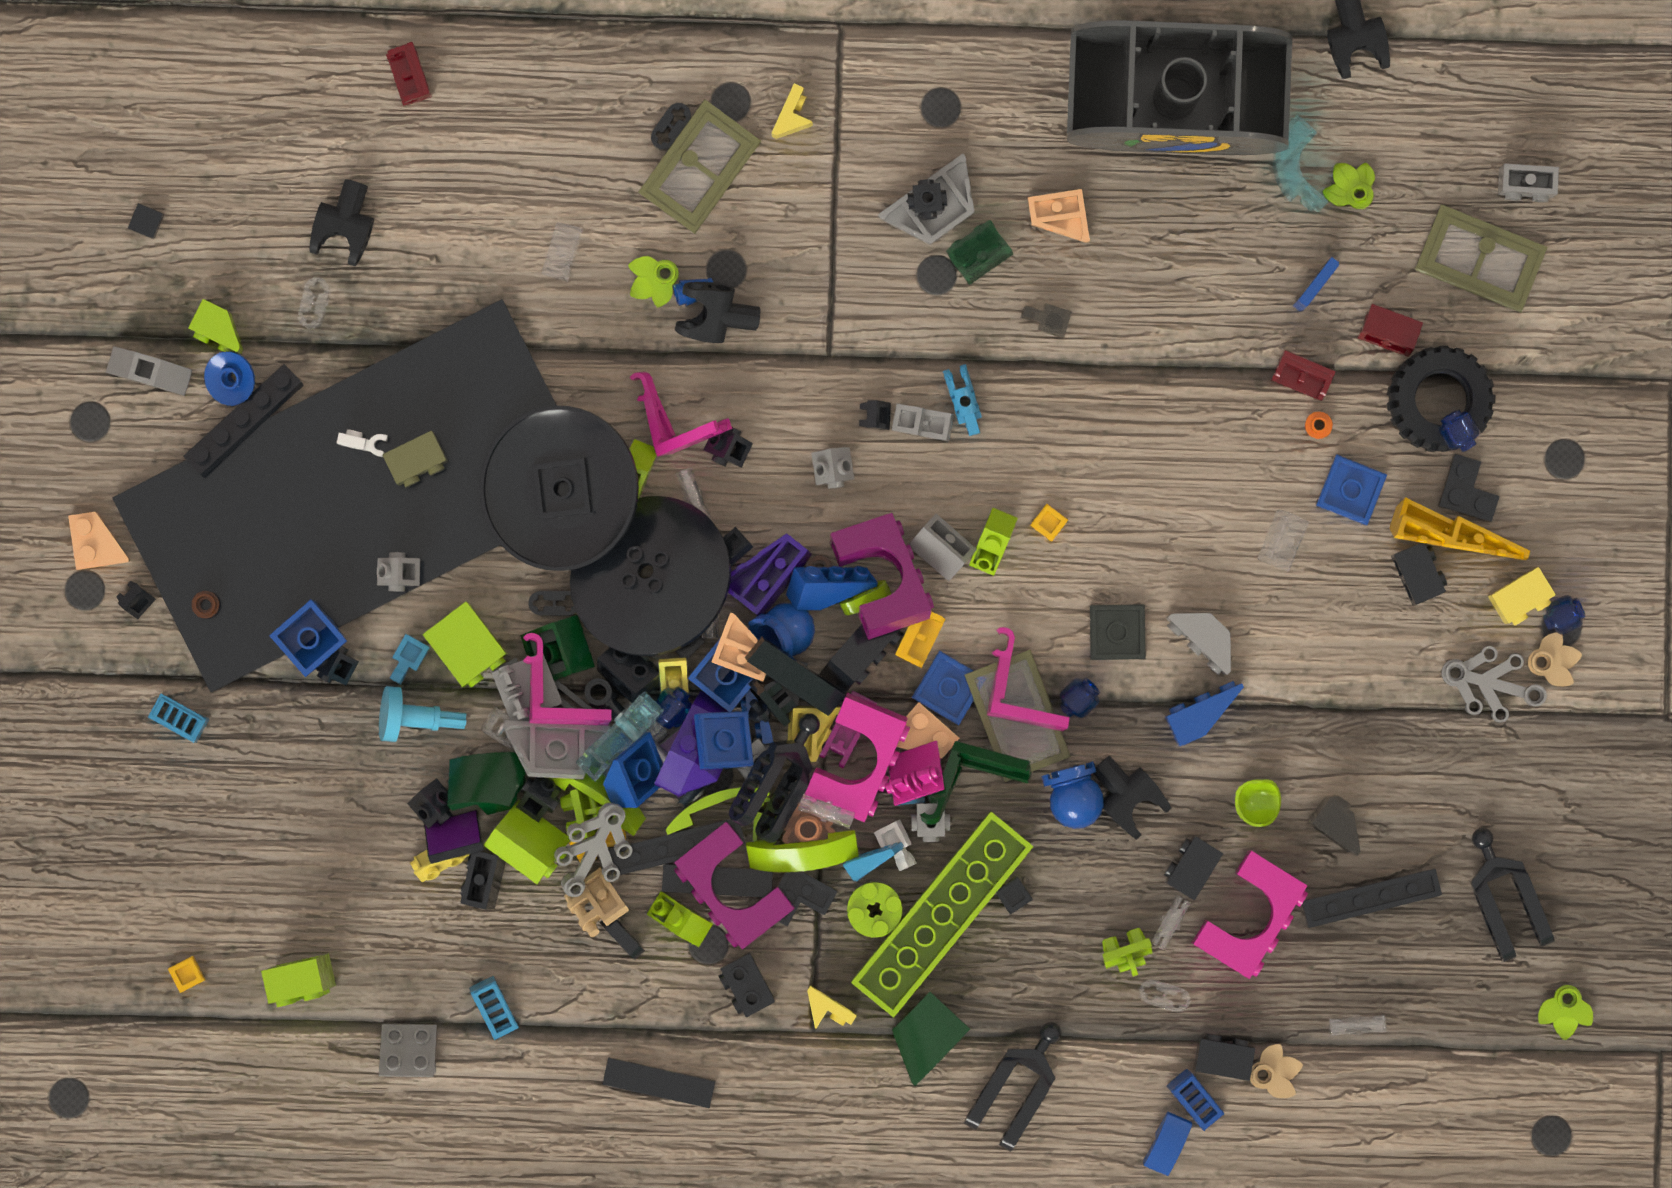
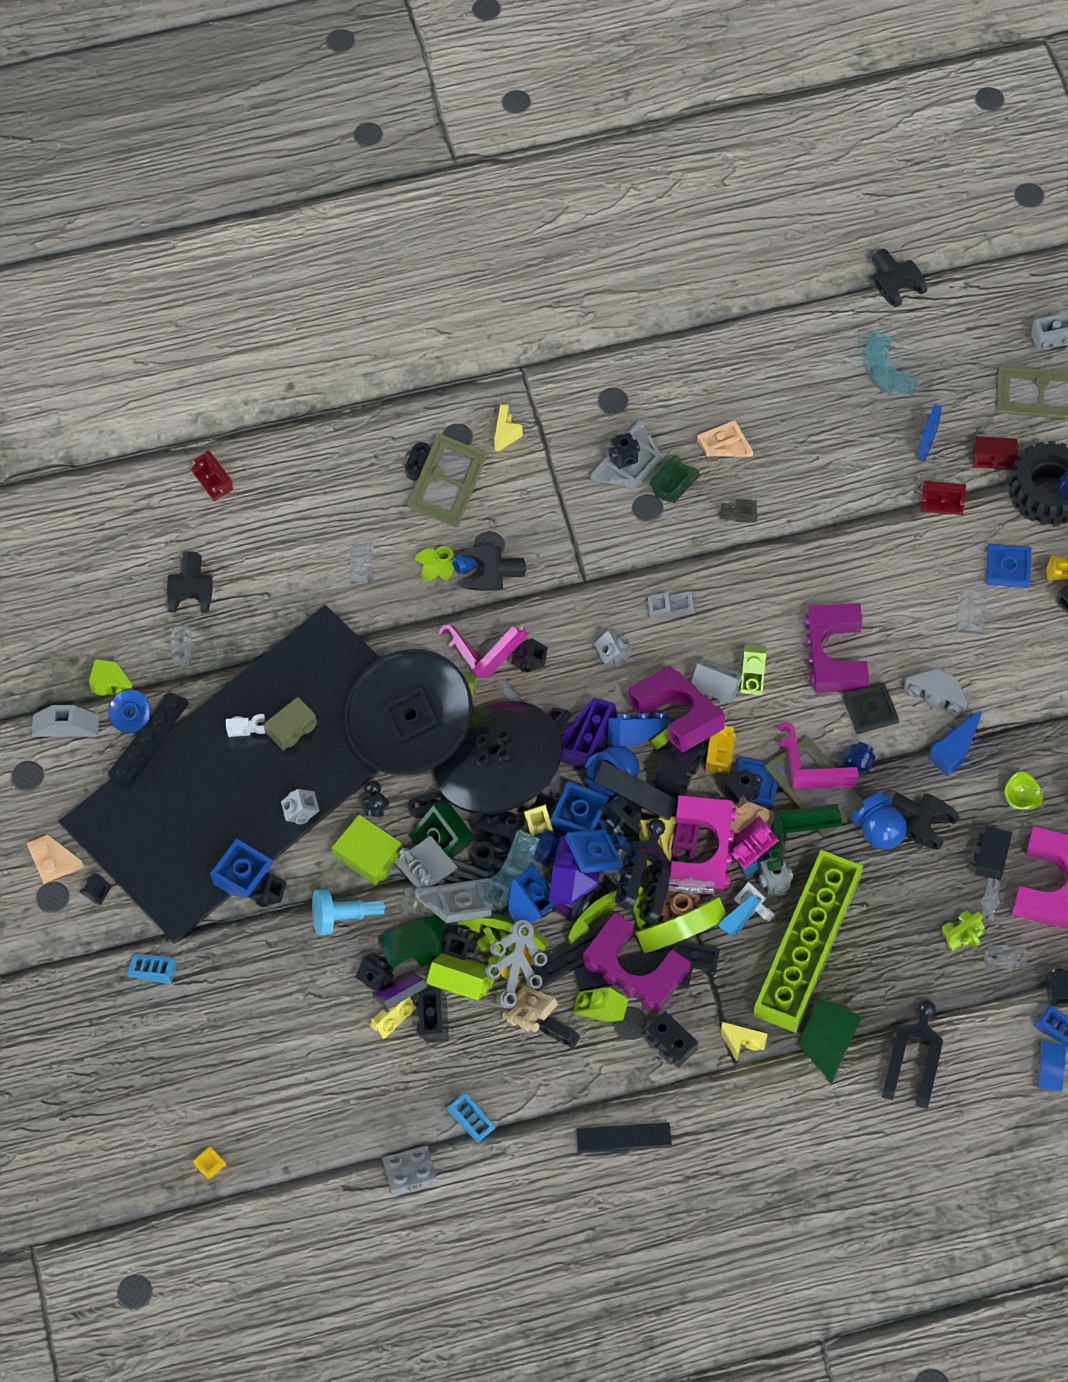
camera: 15 degrees left, 25 degrees down
(146, 221) = (37, 625): black tile -> none
(197, 600) = (152, 869): reddish brown plate -> none
(298, 980) = (304, 1122): lime brick -> none
(409, 655) = (325, 870): dark azure plate -> none
(488, 586) = (376, 801): none -> black animal
(555, 715) = (457, 872): dark pink hinge -> none
(734, 646) = (581, 787): light nougat wing -> none
(877, 415) = (636, 607): black tile -> none
(889, 905) = (753, 941): lime brick -> none
(920, 709) = (743, 787): none -> black brick
(964, 414) = (697, 581): dark azure hinge -> none
(1014, 895) = (860, 917): black tile -> none
(1049, 522) = (791, 647): yellow tile -> none
(1078, 573) = (827, 673): none -> magenta arch
(1179, 87) = (783, 319): dark grey brick -> none
(1312, 431) = (967, 533): orange plate -> none
(1348, 182) = (930, 370): lime plate -> none

